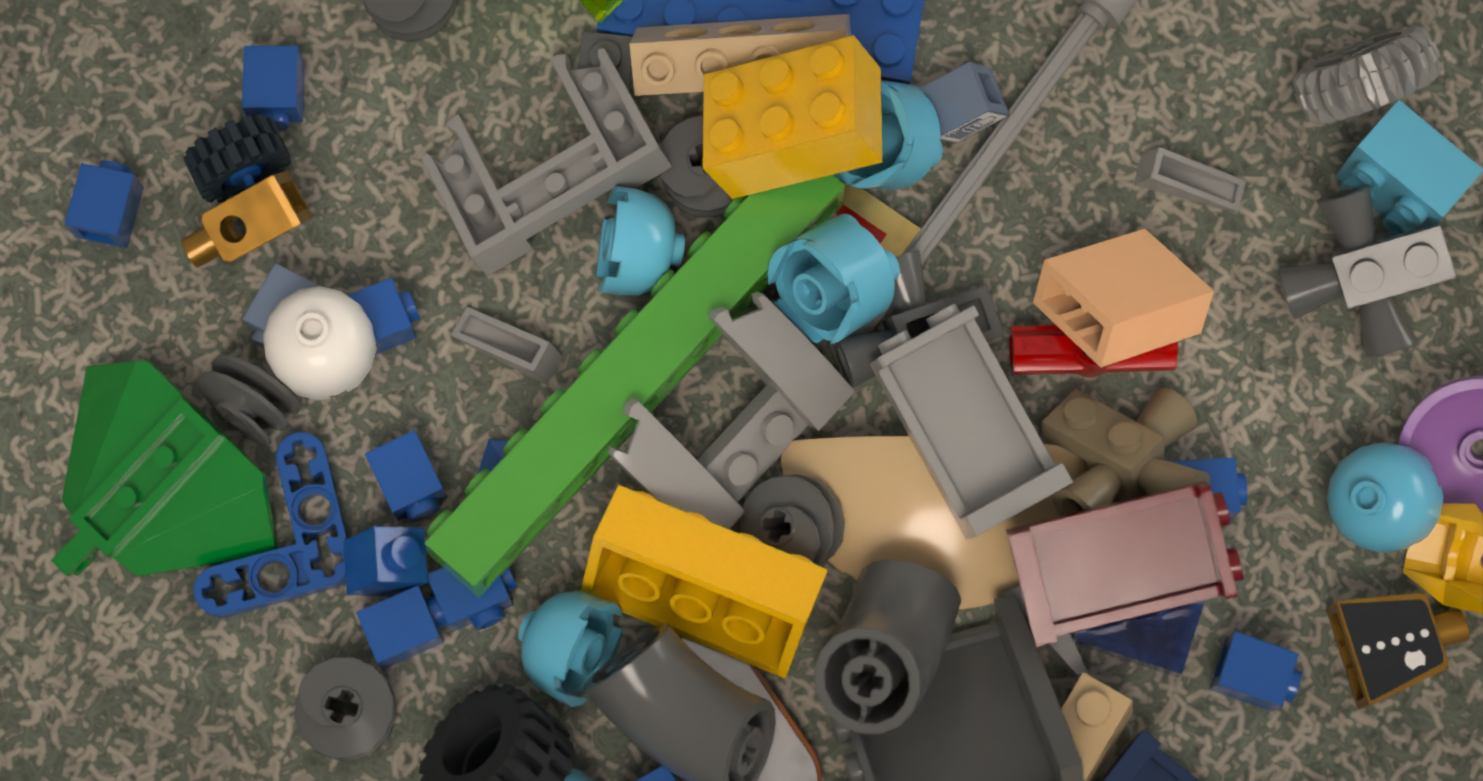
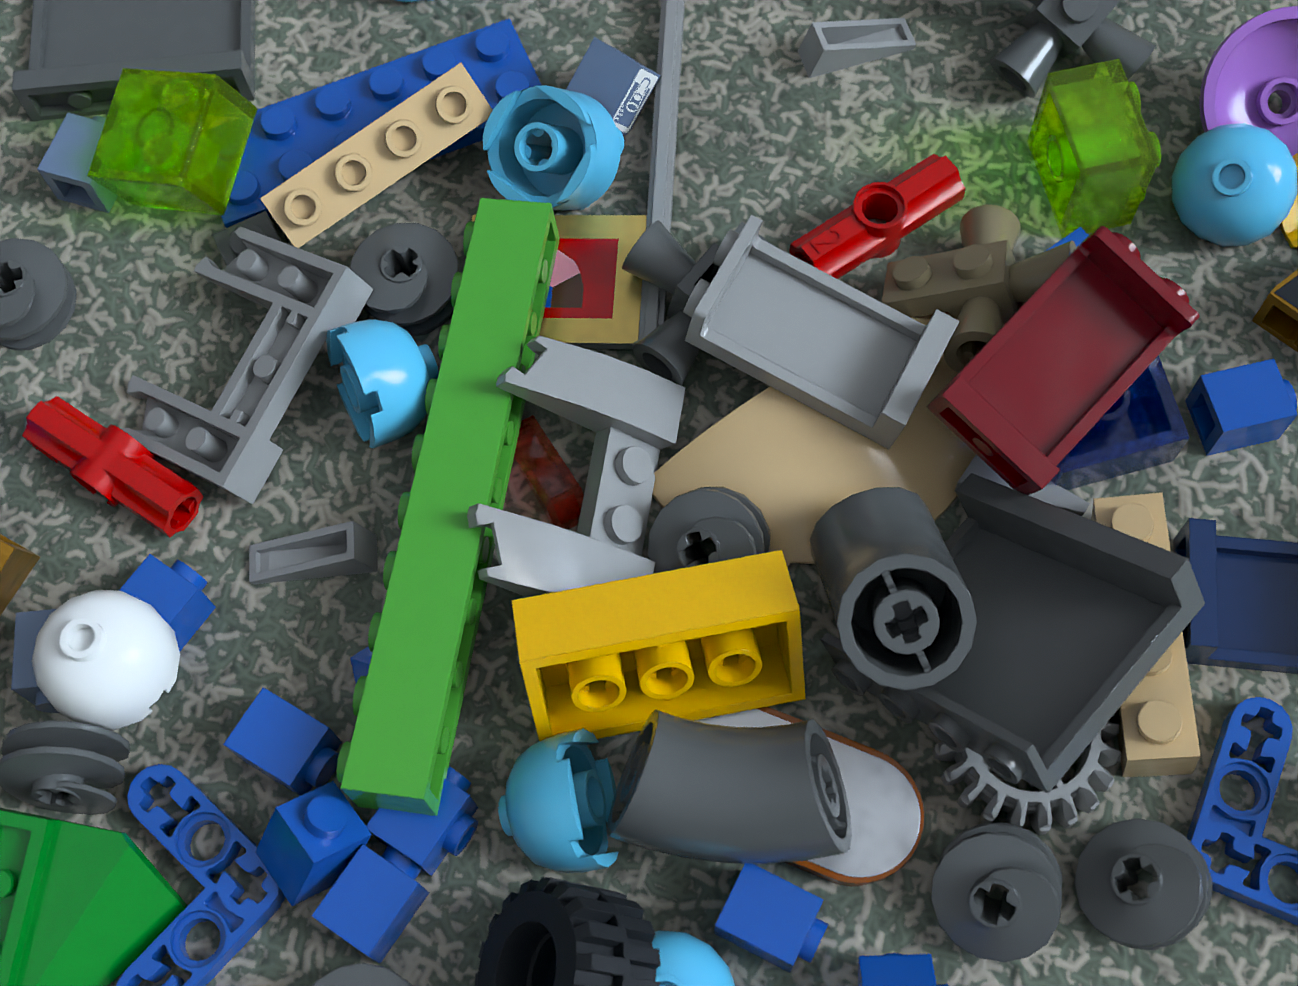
camera: 25 degrees left, 10 degrees down
(403, 182) = (112, 465): none -> red piece
(712, 392) = (548, 475): none -> clear red piece
(792, 117) = (460, 161): yellow brick -> none
(833, 279) = (597, 285): medium azure brick -> none
(1122, 297) = (877, 148): light nougat brick -> none
(1292, 400) = (1092, 147): none -> clear neon green brick

